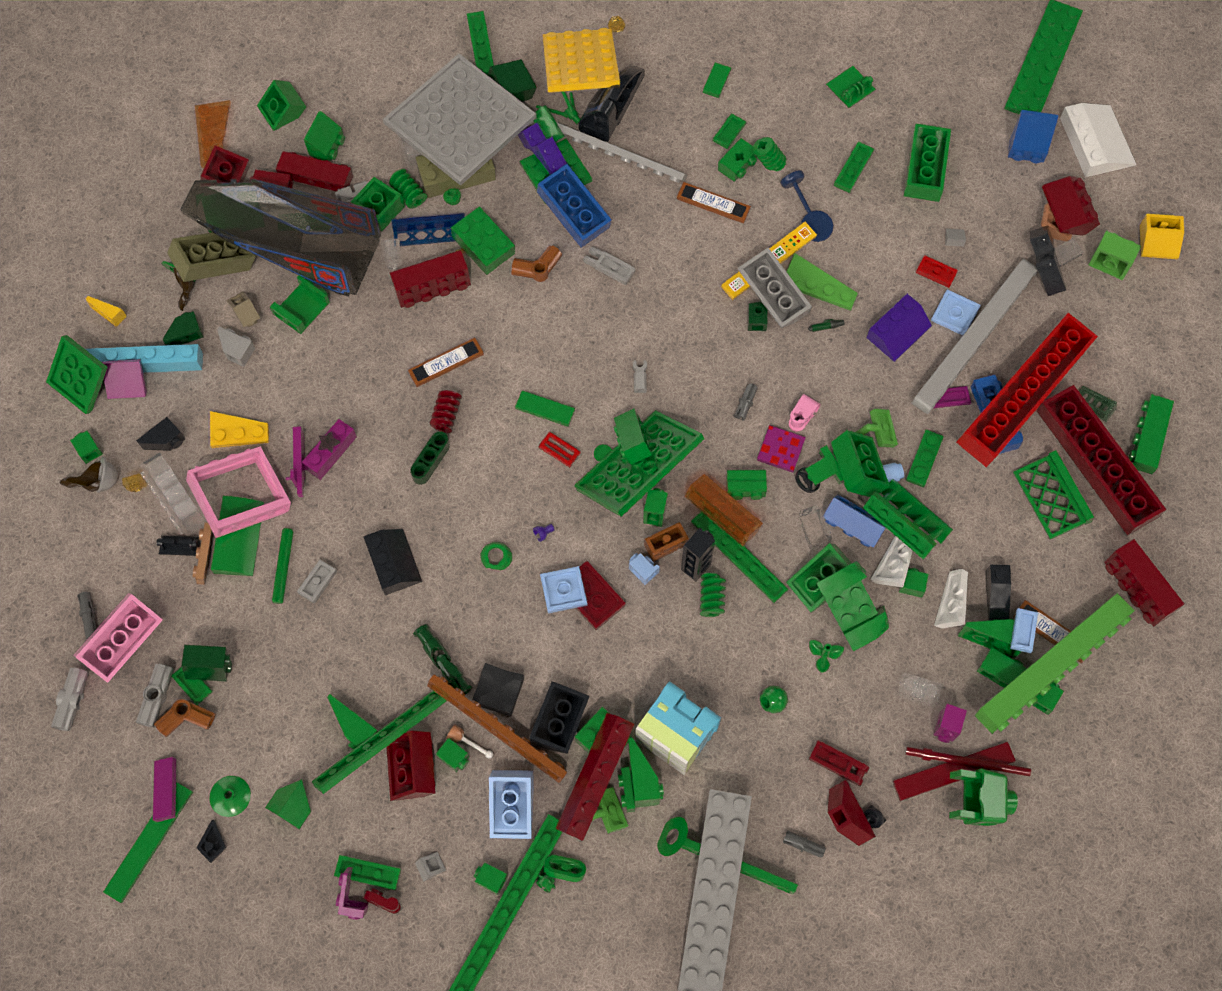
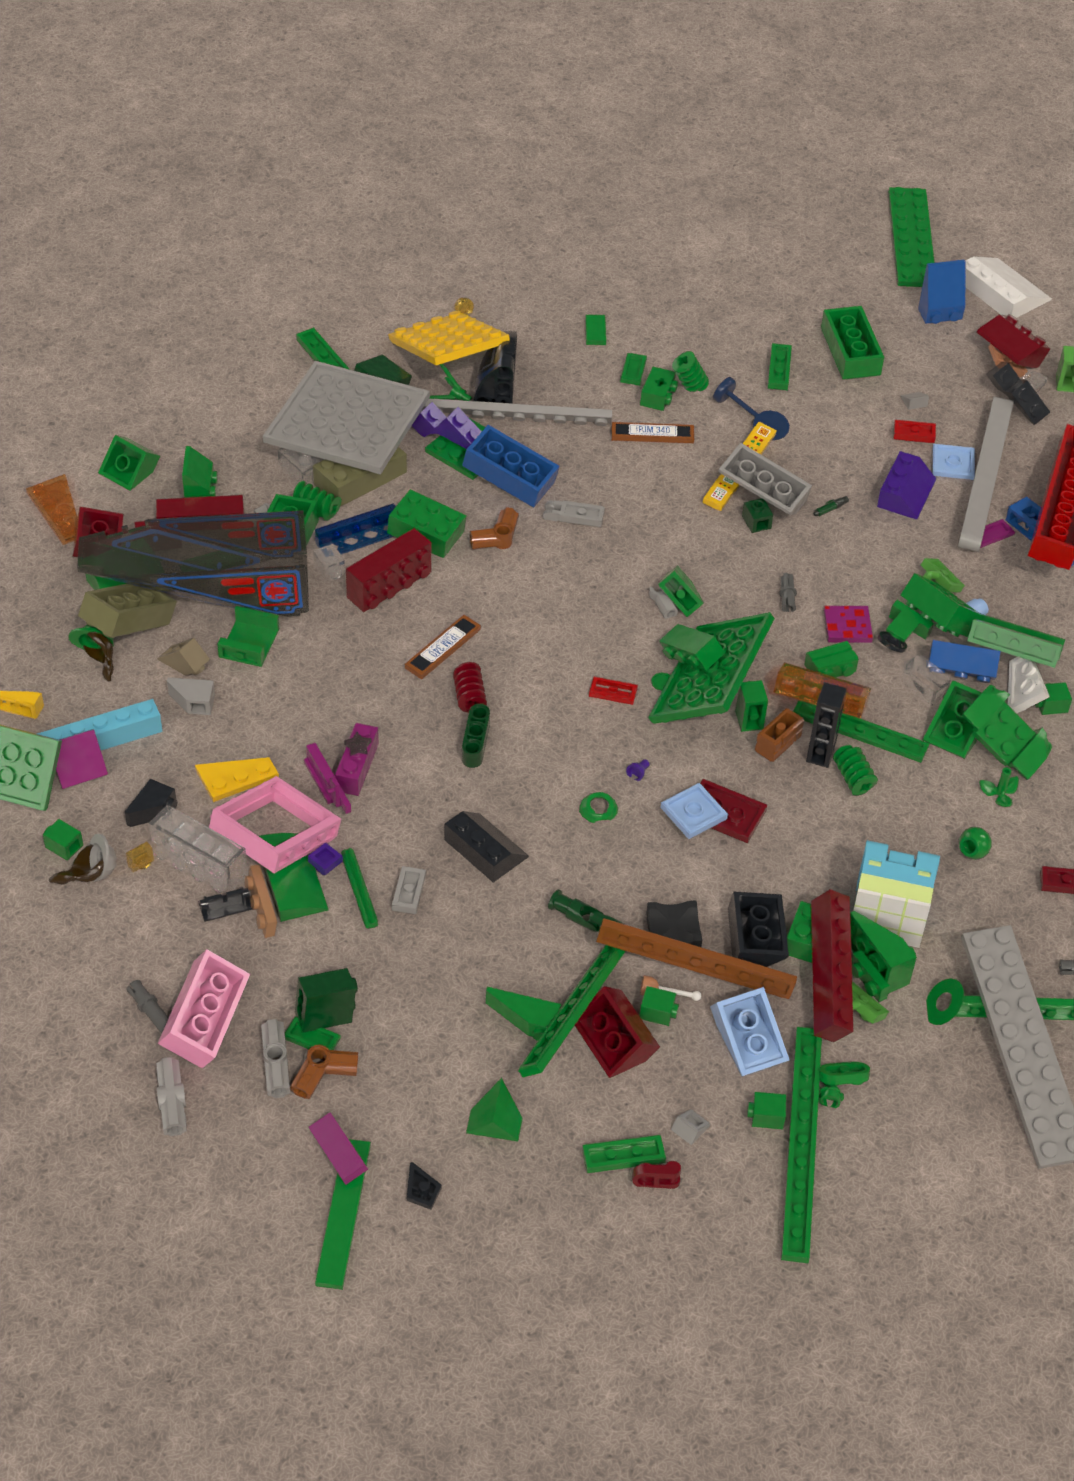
camera: 25 degrees left, 20 degrees down
(183, 330) = (125, 692): dark green slope -> none
(236, 803) = (417, 1144): green dish -> none
(265, 533) = (325, 859): none -> dark purple tile
(350, 908) = (629, 1195): magenta bracket -> none
(452, 196) = (367, 497): green plate -> none
(545, 408) = (576, 658): green tile -> none
(548, 124) = (441, 400): green tile -> none
(643, 568) = (767, 768): light blue brick -> none
(656, 373) = (681, 591): none -> green slope
(804, 412) = (853, 585): bright pink piece -> none
(819, 284) = (813, 473): bright green wing -> none
(851, 86) = (737, 302): green hinge -> none
(924, 458) = (998, 591): green plate -> none

